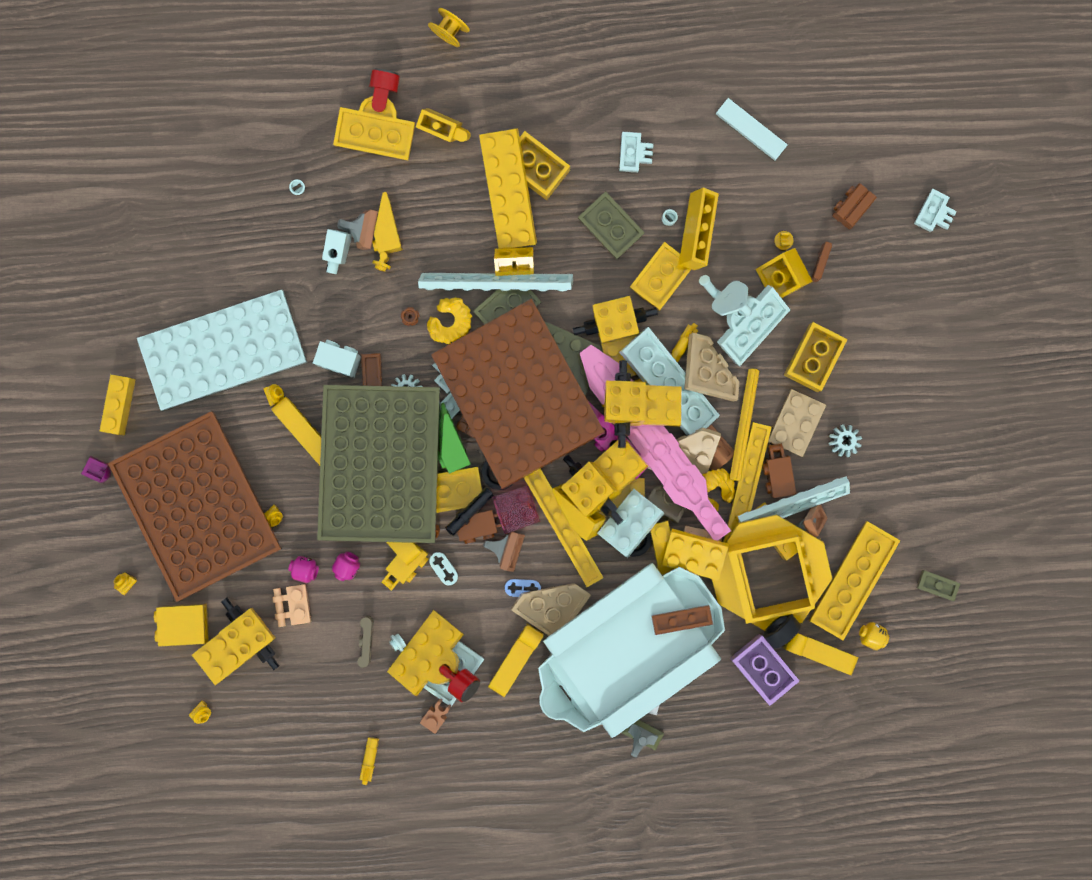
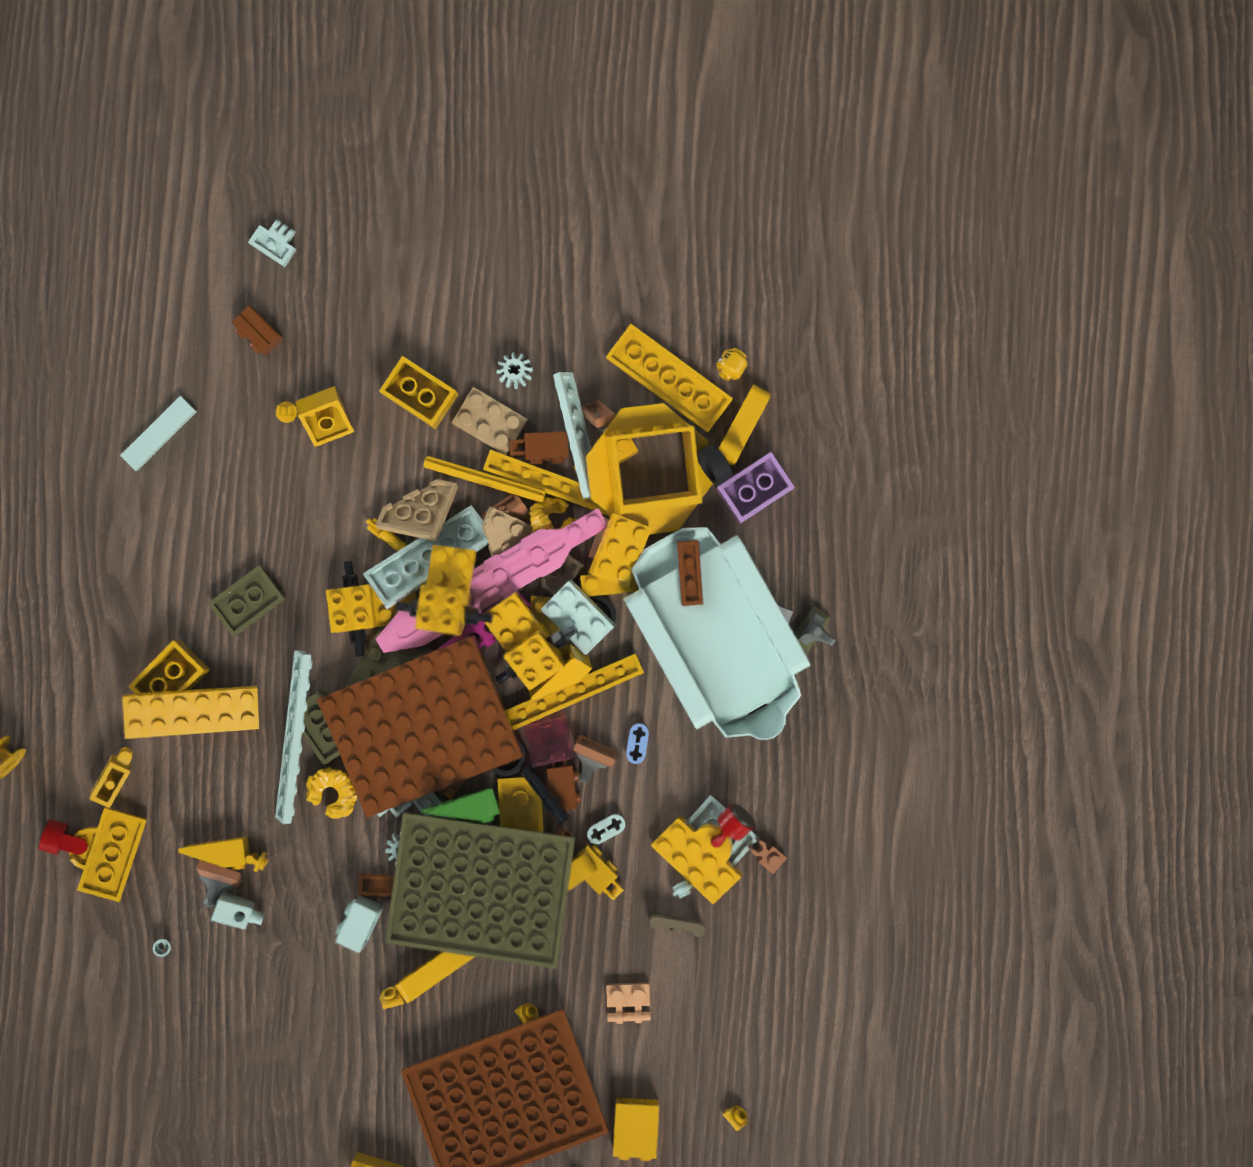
camera: 80 degrees left, 0 degrees up
(221, 350) = (335, 1051): light aqua plate -> none
(236, 644) = (664, 1070): yellow piece -> none
(303, 569) = (589, 985): dark pink head -> none
(346, 566) = (591, 937): dark pink head -> none
(369, 760) = (808, 934): yellow piece -> none
(410, 321) = (316, 836): dark orange plate -> none
(514, 261) = (273, 713): yellow brick -> none
(515, 660) = (715, 760): yellow beam -> none
(551, 607) = (660, 715): tan plate -> none
(633, 152) = (168, 566): light aqua hinge -> none
(660, 277) = (310, 551): yellow plate -> none
(671, 215) = (243, 533): light aqua hinge -> none
(698, 229) = (261, 505): yellow brick -> none
(747, 316) = (369, 455): light aqua plate -> none
(821, 261) = (314, 373): dark orange tile -> none
(938, 585) = (684, 287): olive plate -> none

